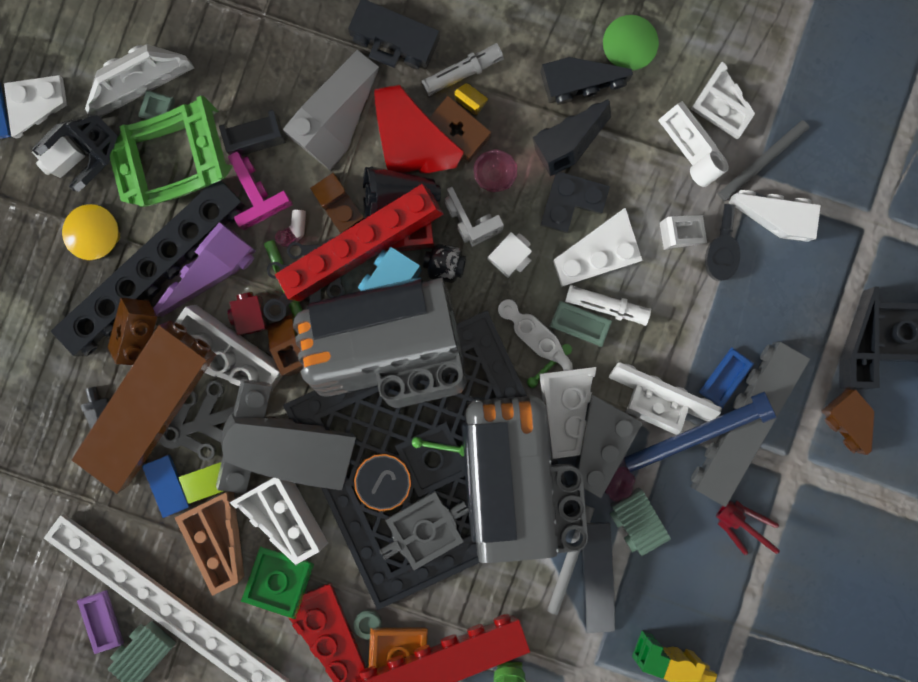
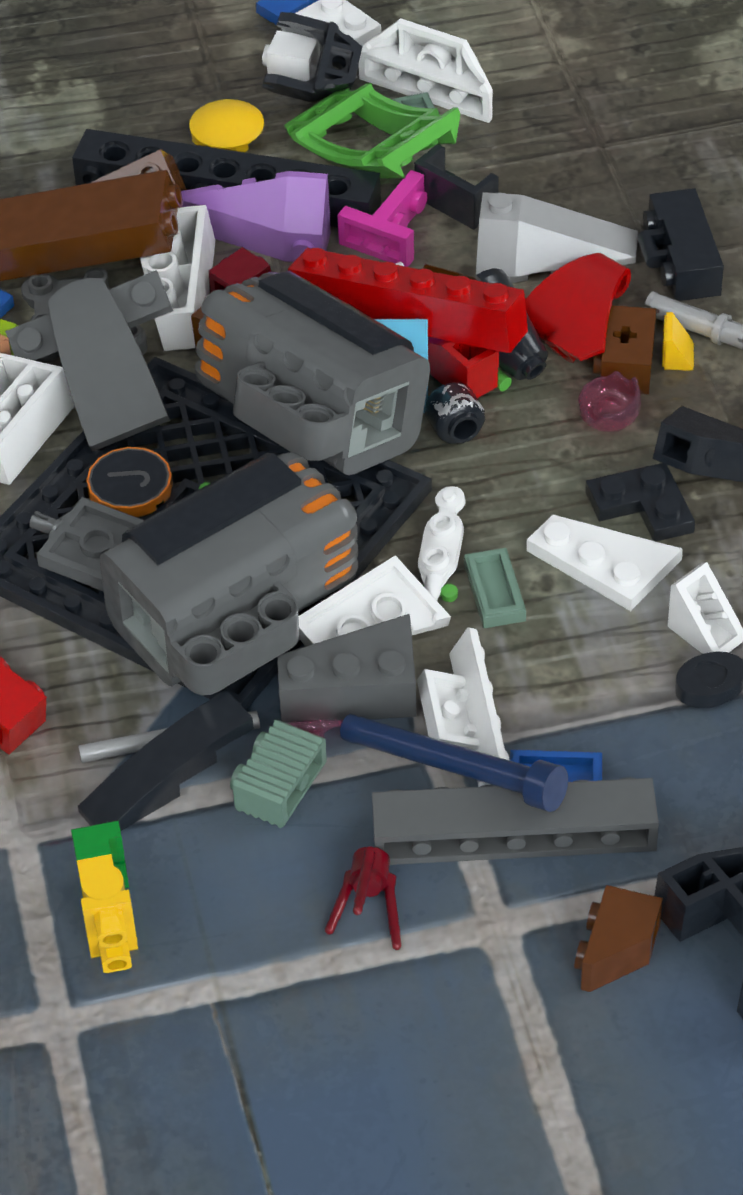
camera: 60 degrees right, 40 degrees down
(485, 226) = (527, 403): light grey bracket -> none
(511, 254) = (520, 468): white brick -> none
(608, 305) = (548, 609): white pin -> none

